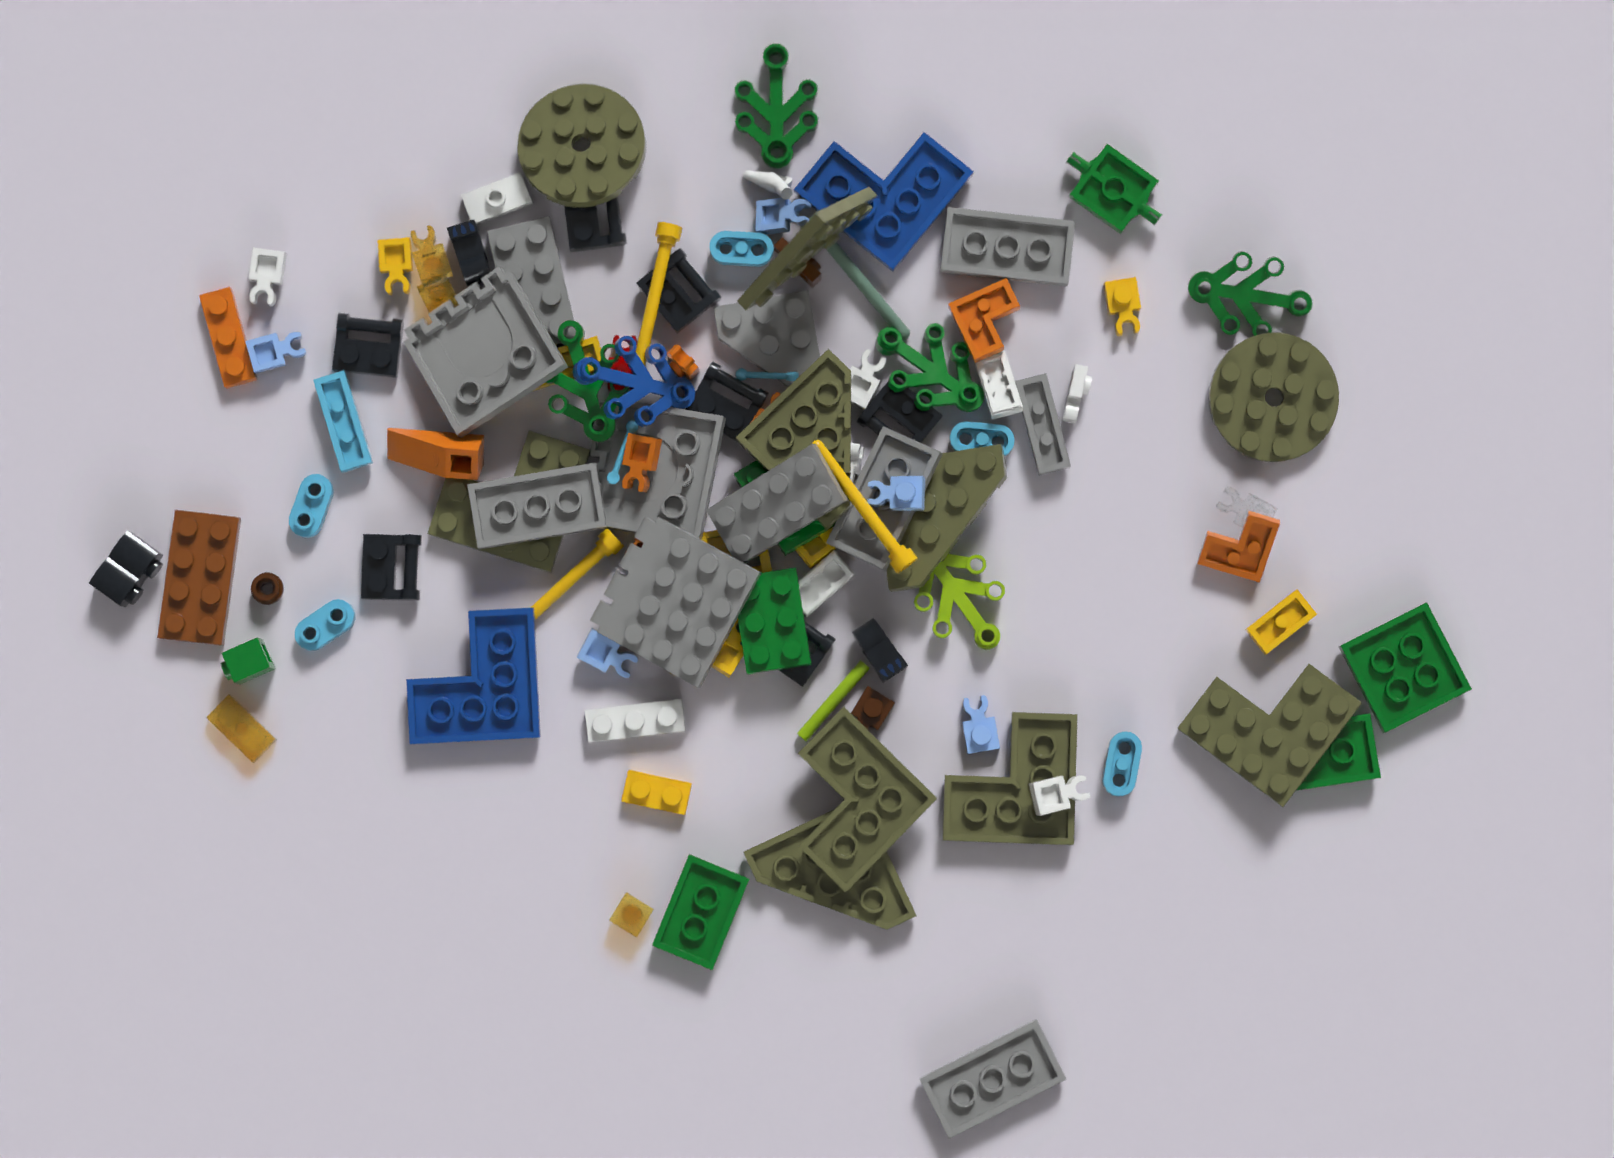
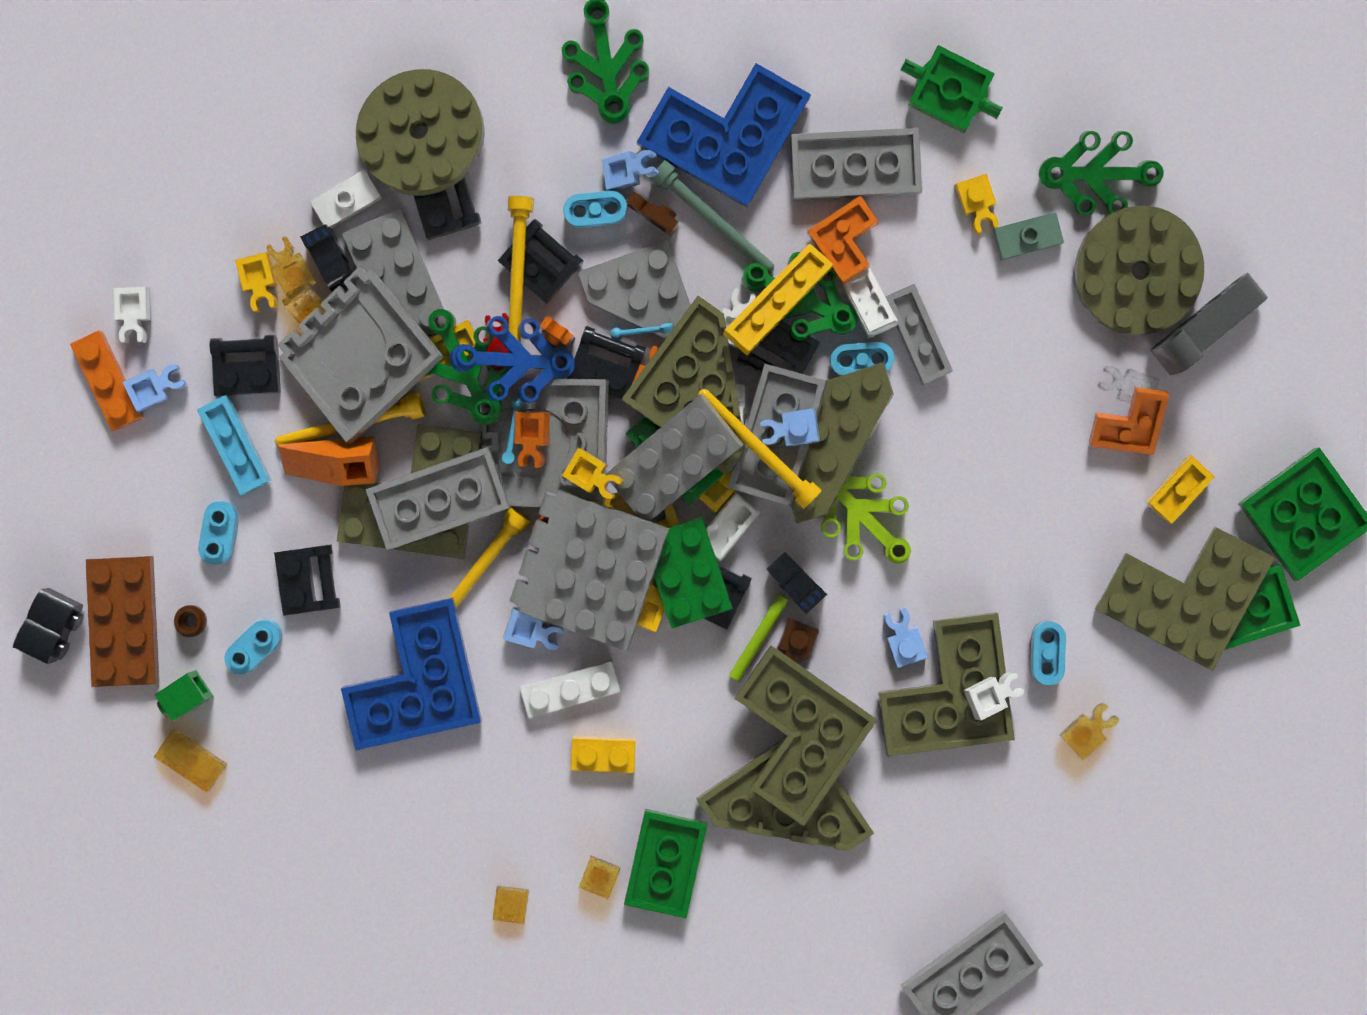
camera: 10 degrees left, 5 degrees up
(524, 412) = (411, 407): none -> yellow piece
(537, 928) = (510, 904): none -> clear yellow plate
(691, 504) = (588, 473): none -> yellow plate
(771, 182) = (613, 138): white animal -> none
(815, 235) = (668, 184): olive plate -> none
(906, 365) = (778, 299): none -> yellow plate
(1079, 386) = (947, 291): white plate -> none
(1147, 852) = (1085, 734): none -> clear yellow plate
(1168, 345) = (1028, 236): none -> sand green plate
(1334, 461) = (1187, 342): none -> dark grey beam

